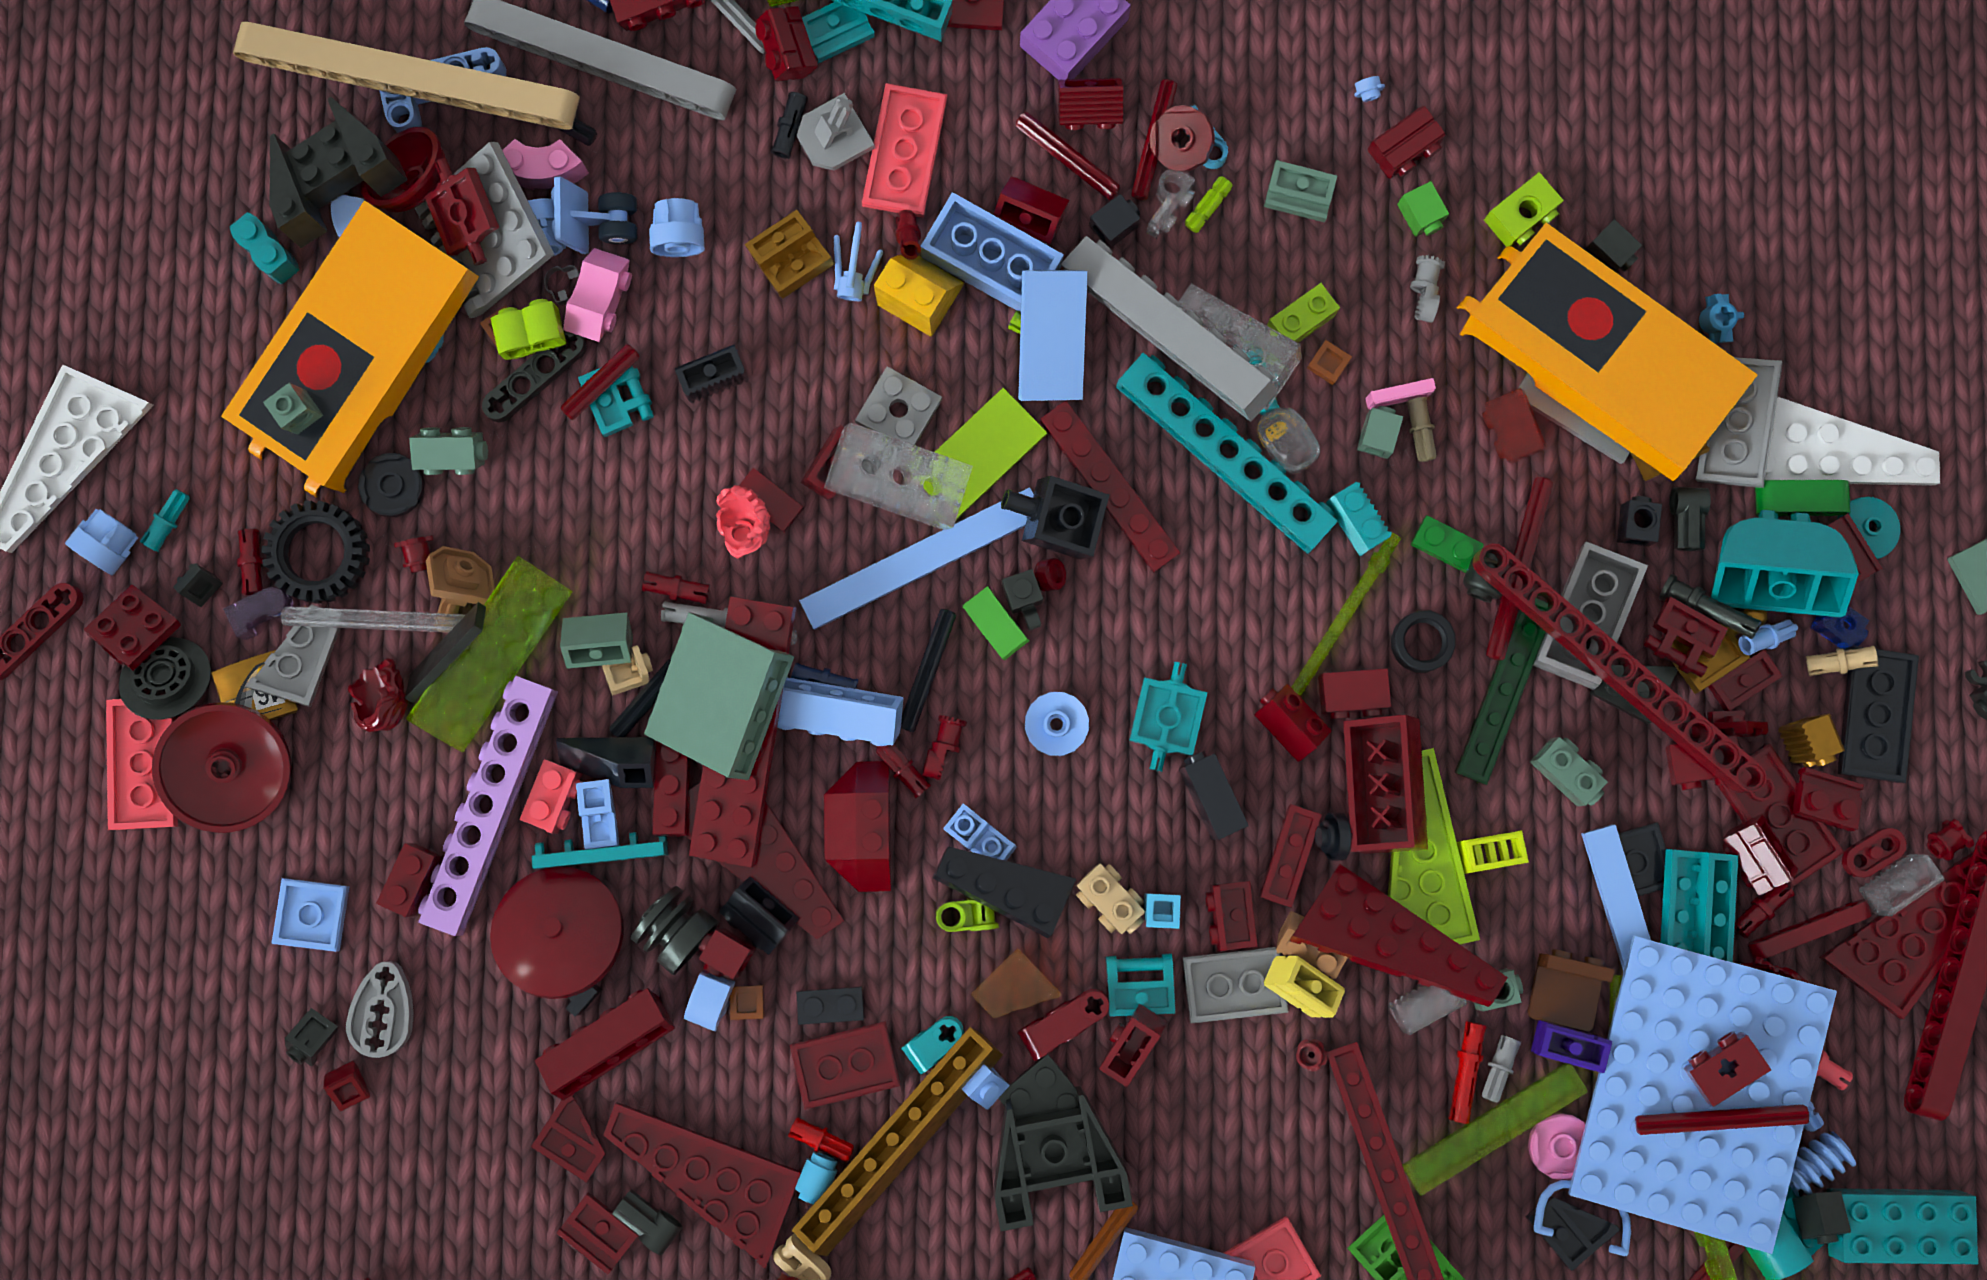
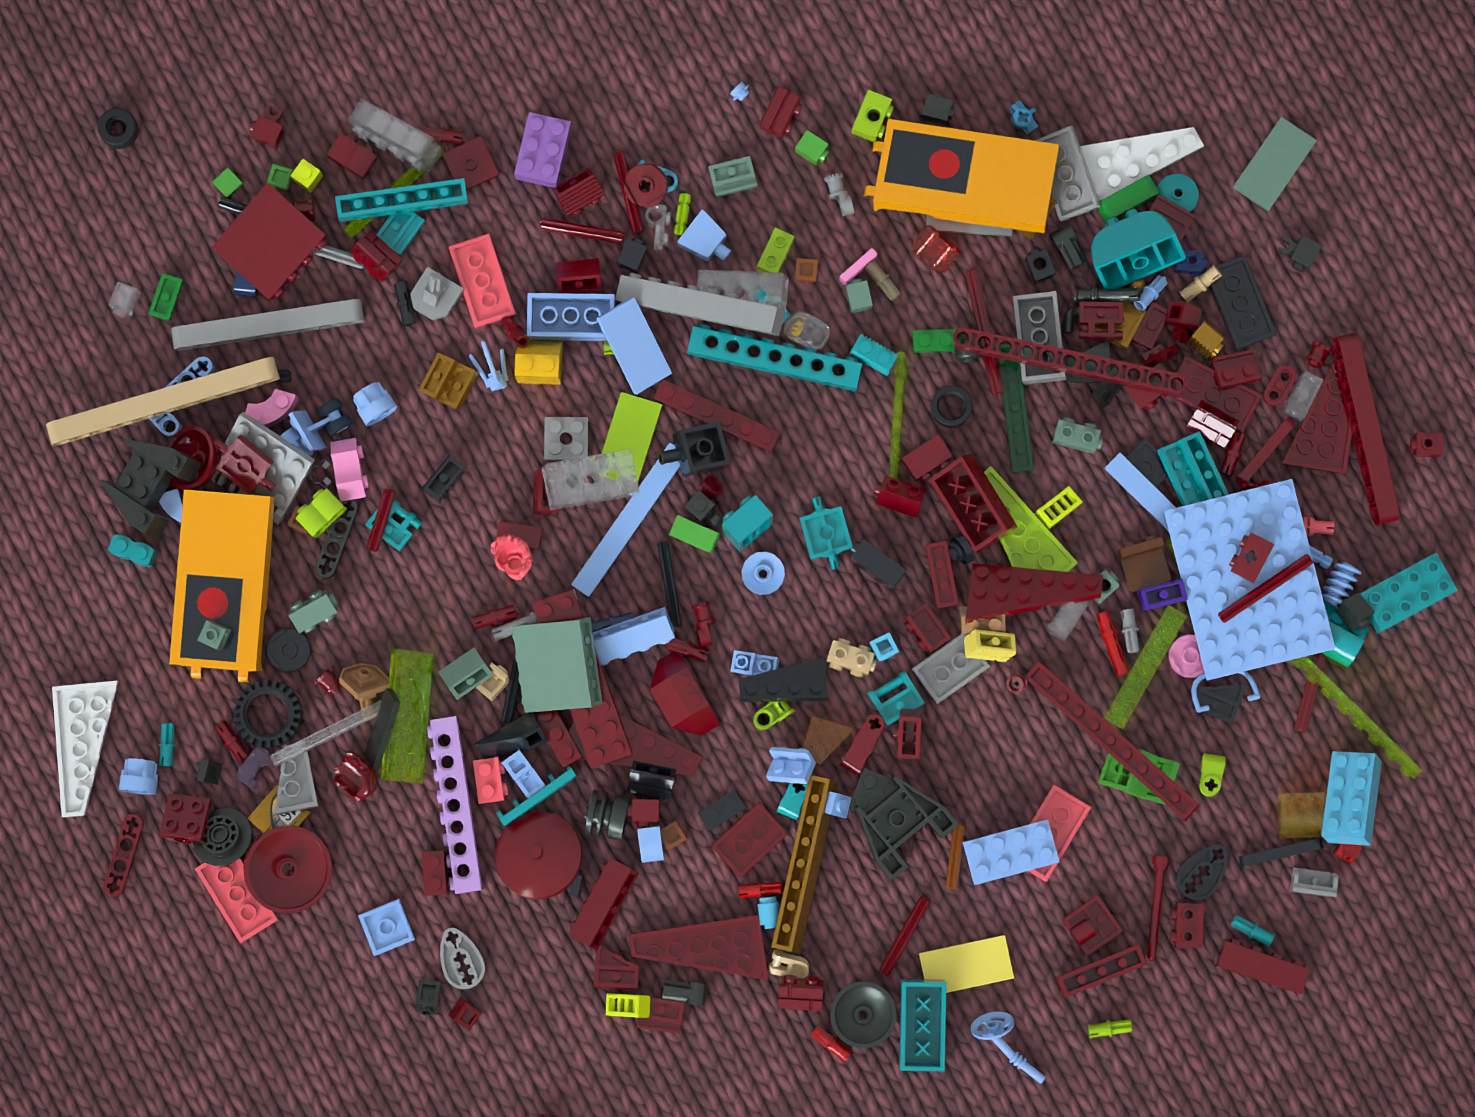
camera: 25 degrees left, 0 degrees up
(576, 1208) = (640, 1006): none -> neon yellow slope
(952, 999) = (790, 765): none -> light blue bracket
(1072, 645) = (747, 522): none -> teal brick
(1220, 249) = (704, 238): none -> light blue torso
(1641, 611) = (1070, 317): none -> pearl dark grey arm
(1641, 732) = (1107, 390): none -> pearl dark grey tile
(1795, 692) = (1184, 318): none -> dark red brick

